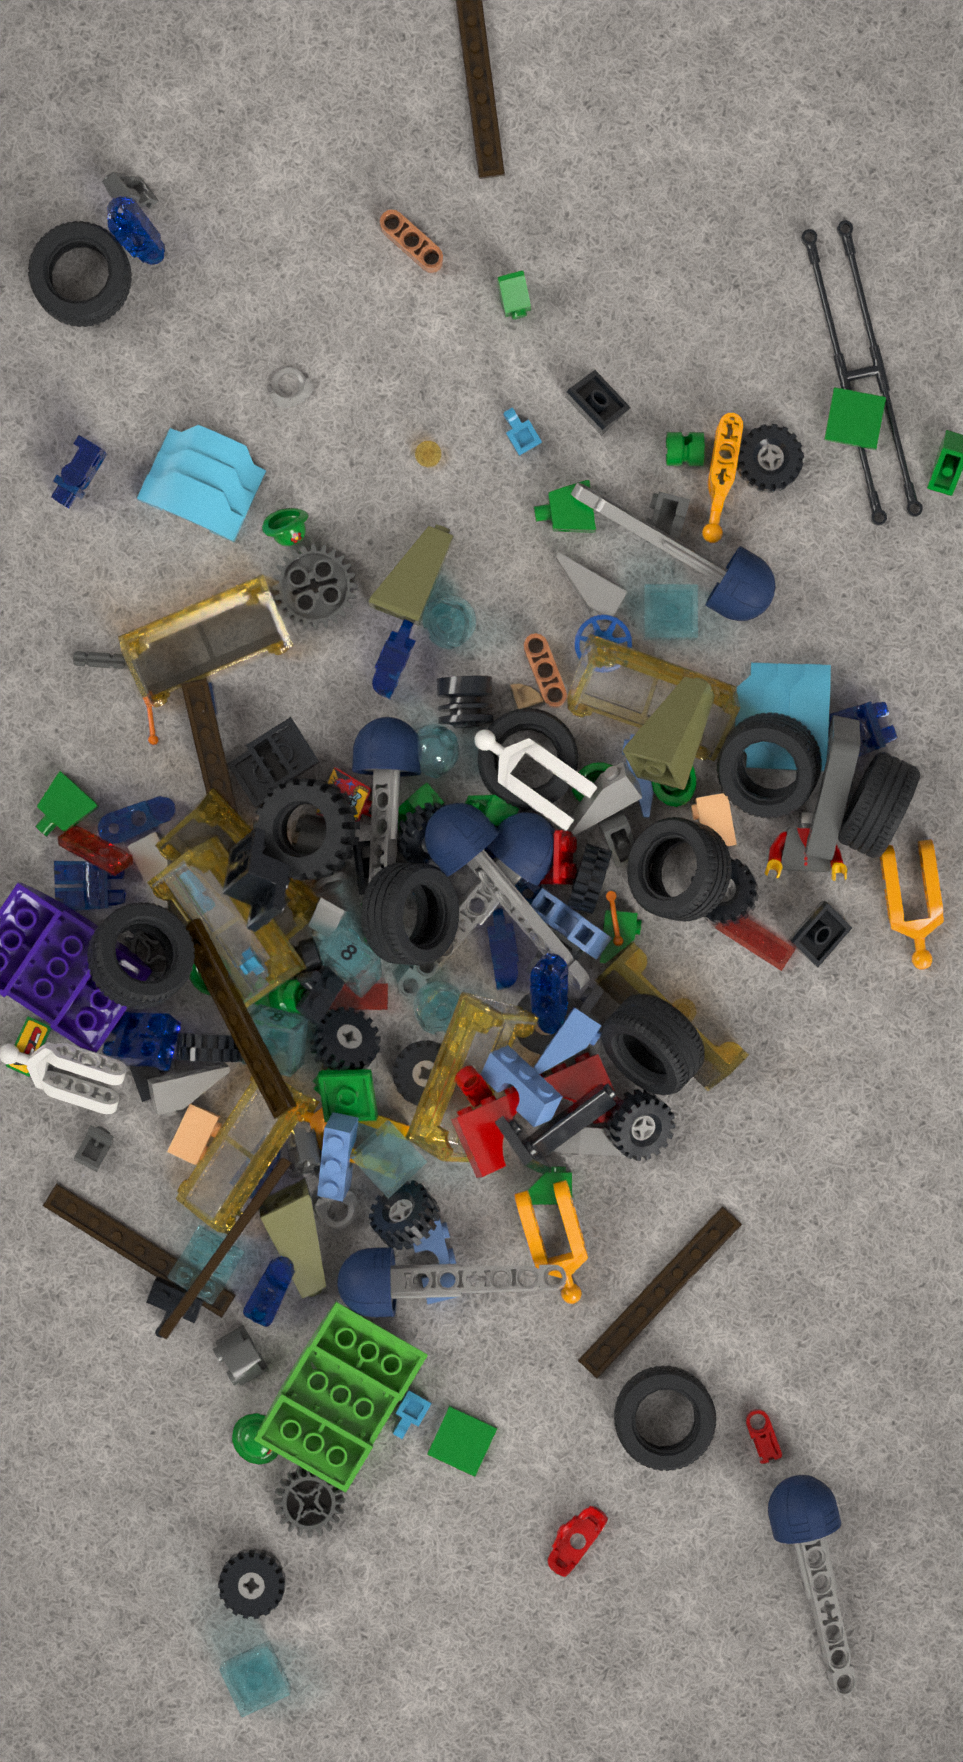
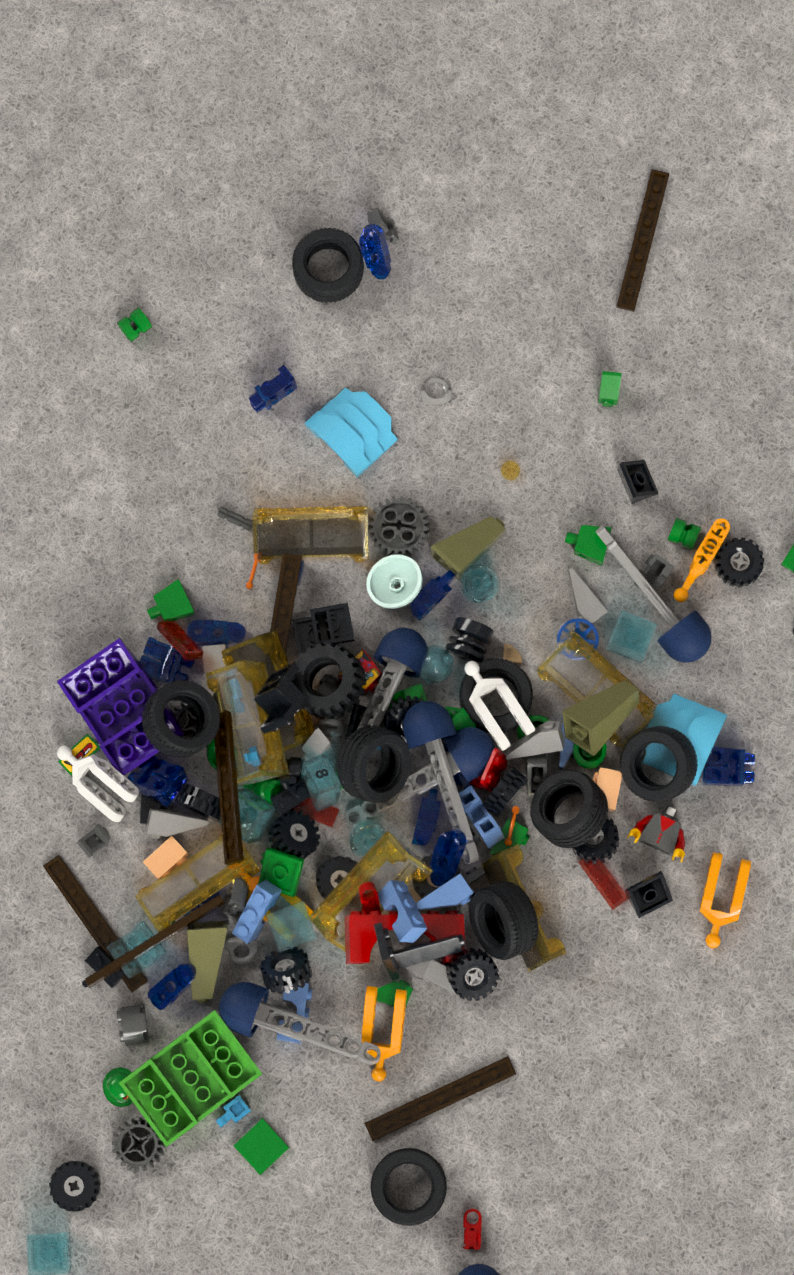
camera: 25 degrees right, 10 degrees down
(286, 526) = (396, 479): green hat -> none
(324, 659) = (387, 575): none -> light aqua dish
(406, 230) = (555, 337): nougat beam -> none
(522, 435) = (578, 482): dark azure plate -> none
(545, 657) = (531, 633): nougat beam -> none
(565, 1557) = (298, 1257): red piece -> none
(835, 787) = (696, 796): dark grey beam -> none
(878, 805) = (722, 819): black tyre -> none

